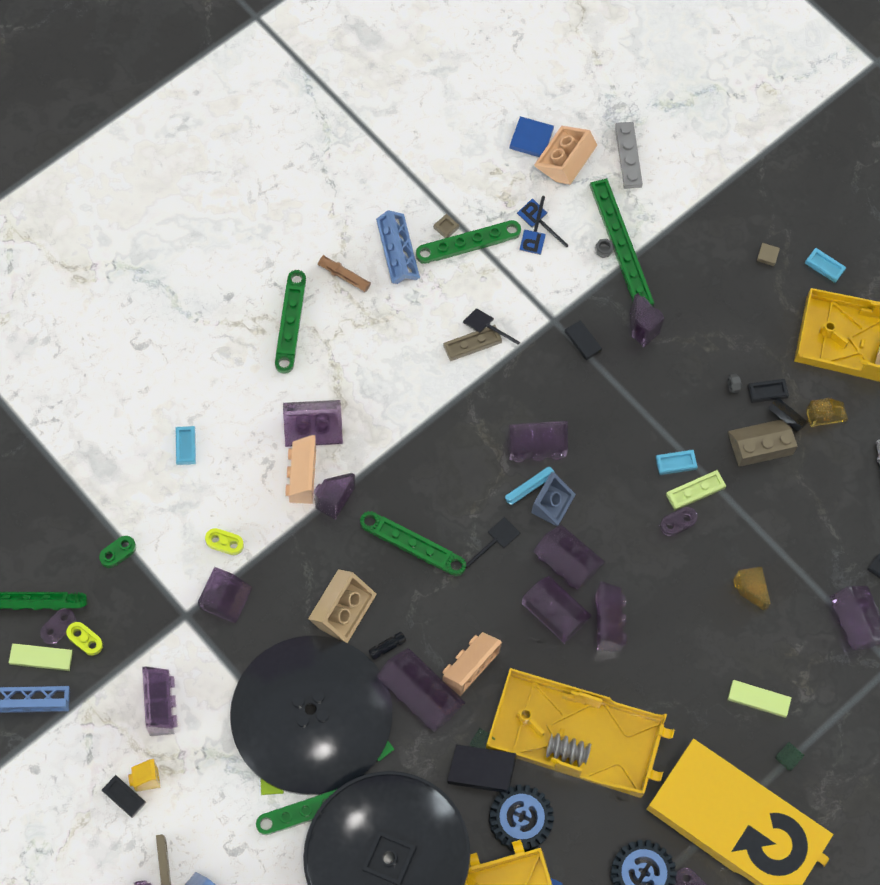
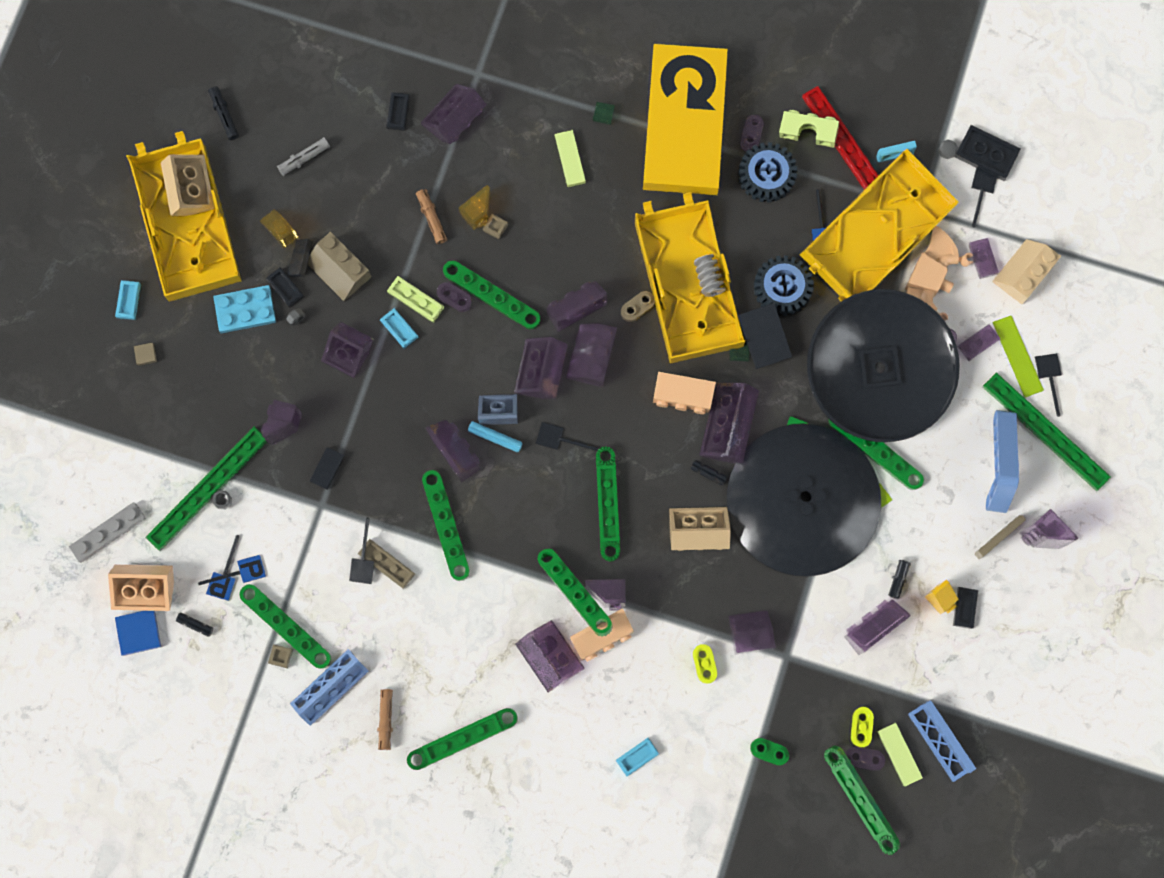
camera: 115 degrees left, 10 degrees up
(186, 752) = (899, 579): none -> black axle
(357, 464) = (575, 592): none -> green plate
(476, 405) = (445, 525): none -> green plate
(512, 178) = (194, 624): none -> black axle
(579, 674) = (638, 306): none -> dark tan plate
(663, 555) = (491, 295): none -> green plate
(681, 408) = (346, 349): none -> clear purple slope
(727, 595) = (495, 226): none -> dark tan tile
(765, 349) = (244, 309): none -> medium azure plate
(776, 545) = (428, 210): none -> medium nougat pin

